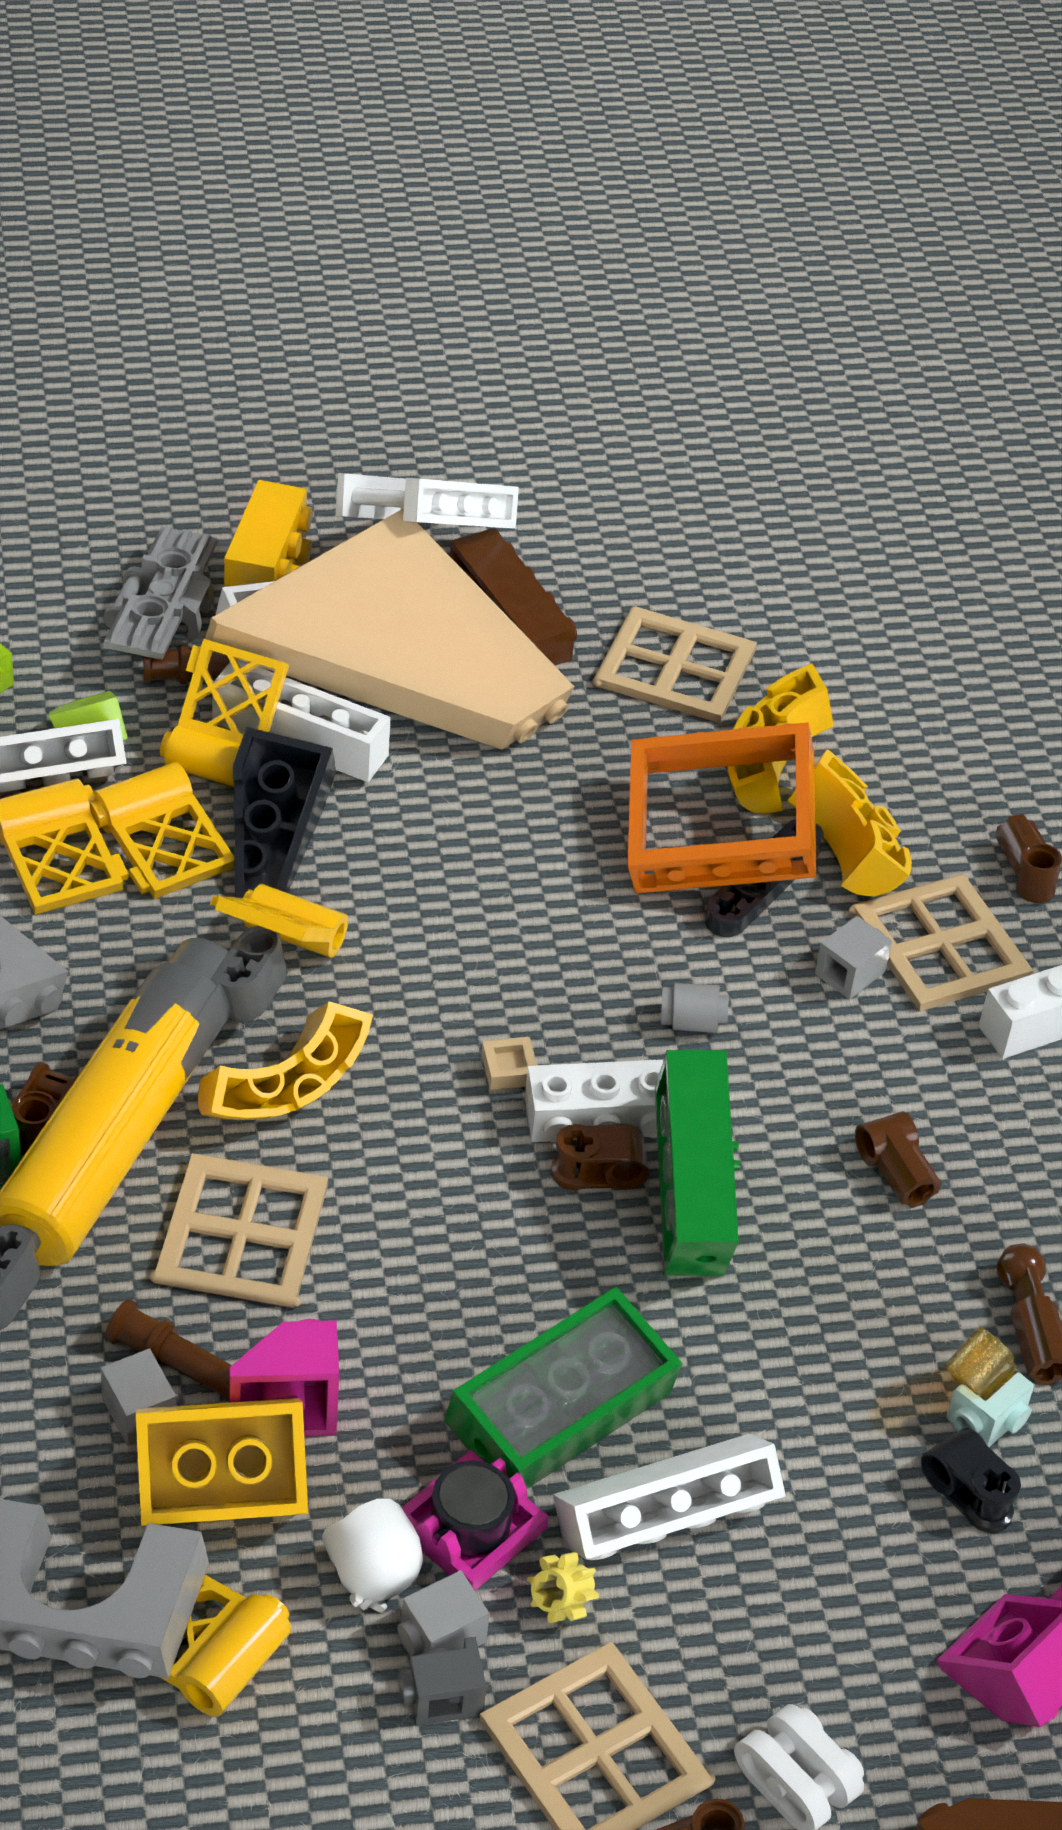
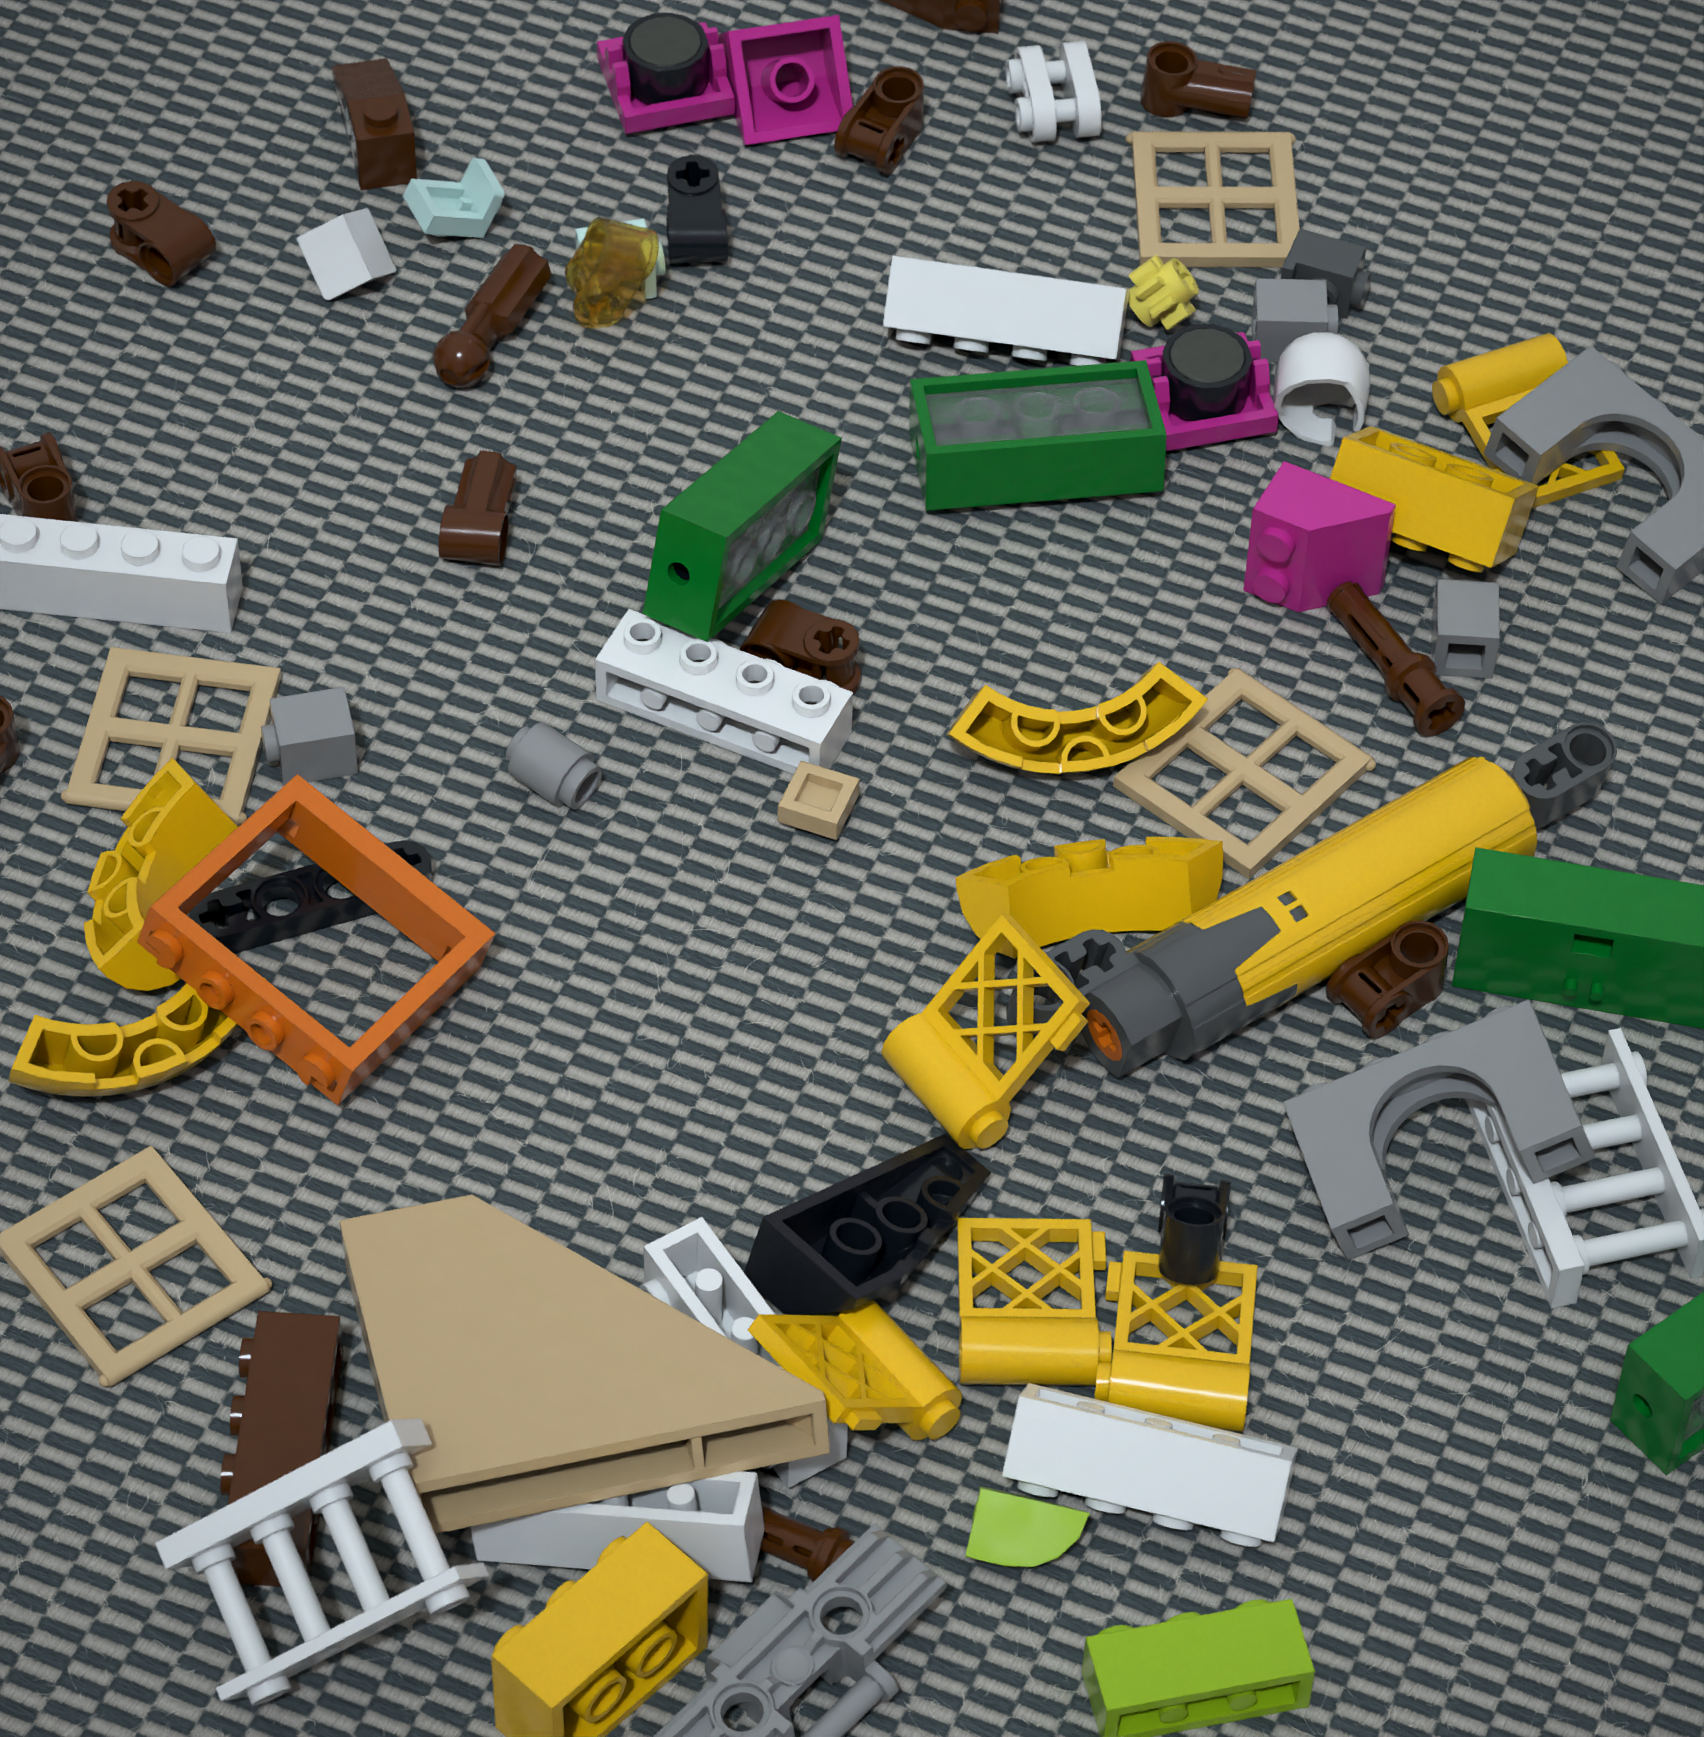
camera: 145 degrees left, 5 degrees up
(90, 901) = (1192, 1229): none -> black piece
(377, 1180) = (1078, 739): none -> yellow brick
(907, 1649) = (884, 119): none -> reddish brown piece

